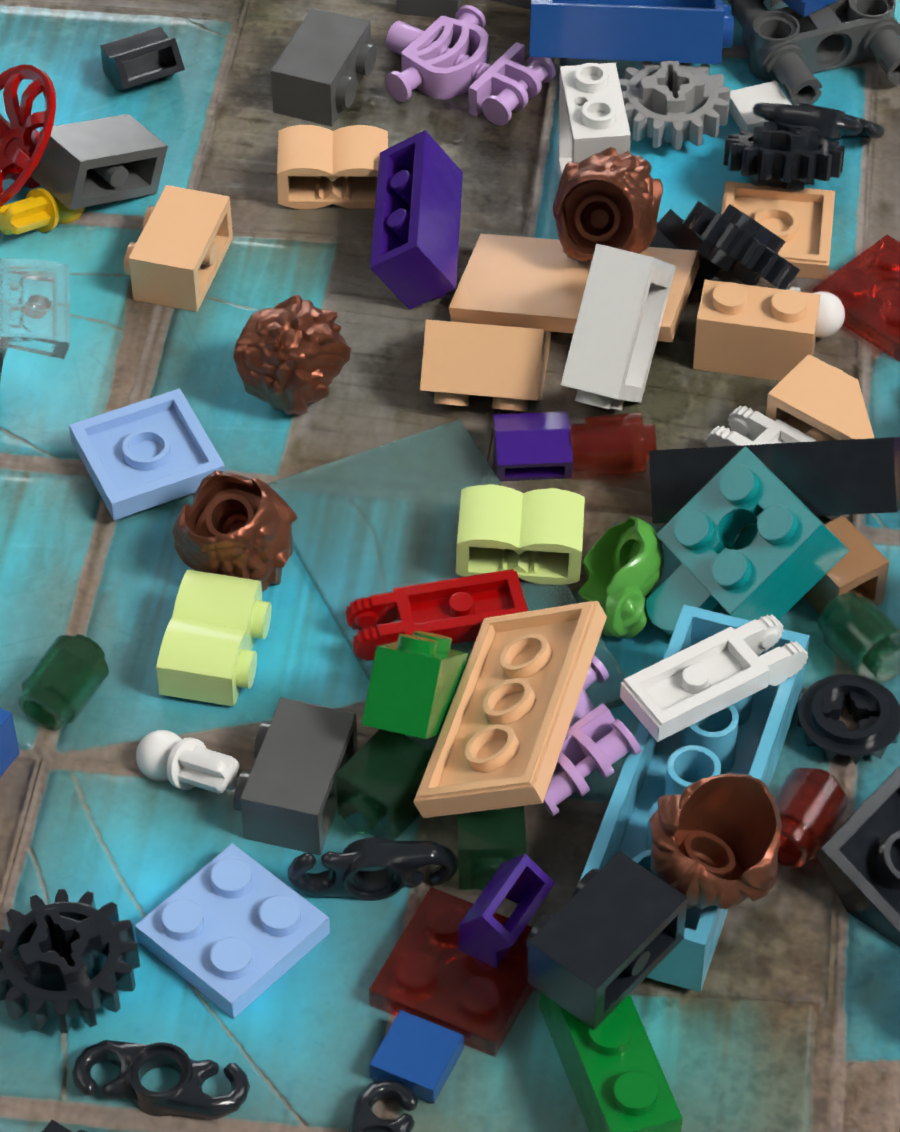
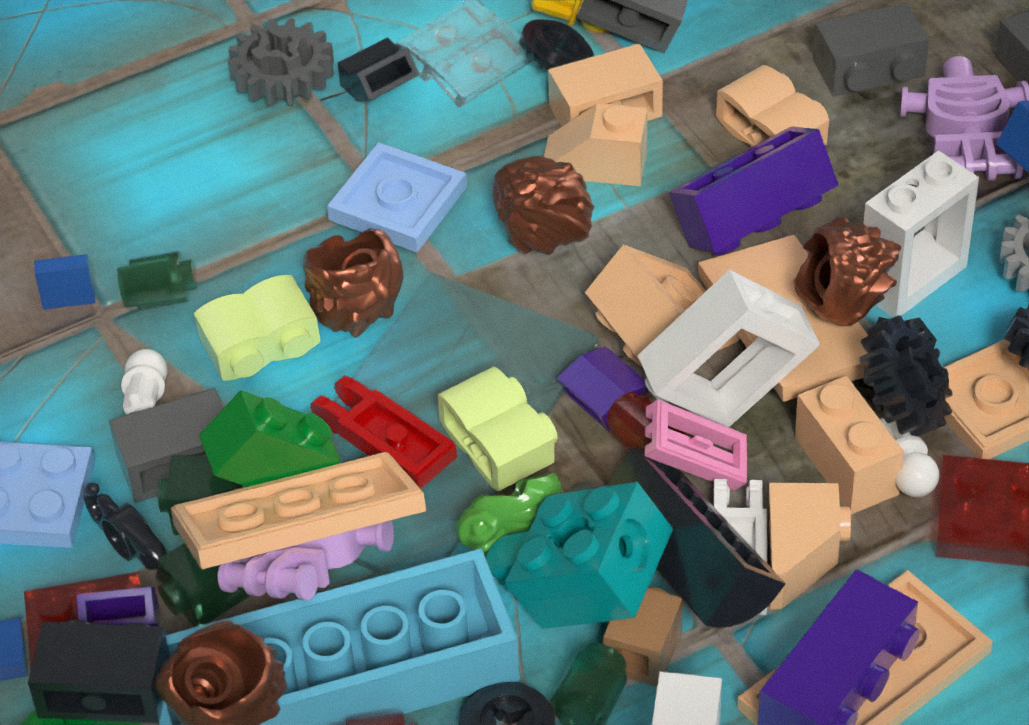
camera: 55 degrees right, 0 degrees up
(86, 245) = (544, 36): none -> black gear
(241, 279) = (603, 144): none -> light nougat slope
(682, 424) = (696, 454): none -> bright pink tile
(711, 676) = (408, 598): white hinge -> none

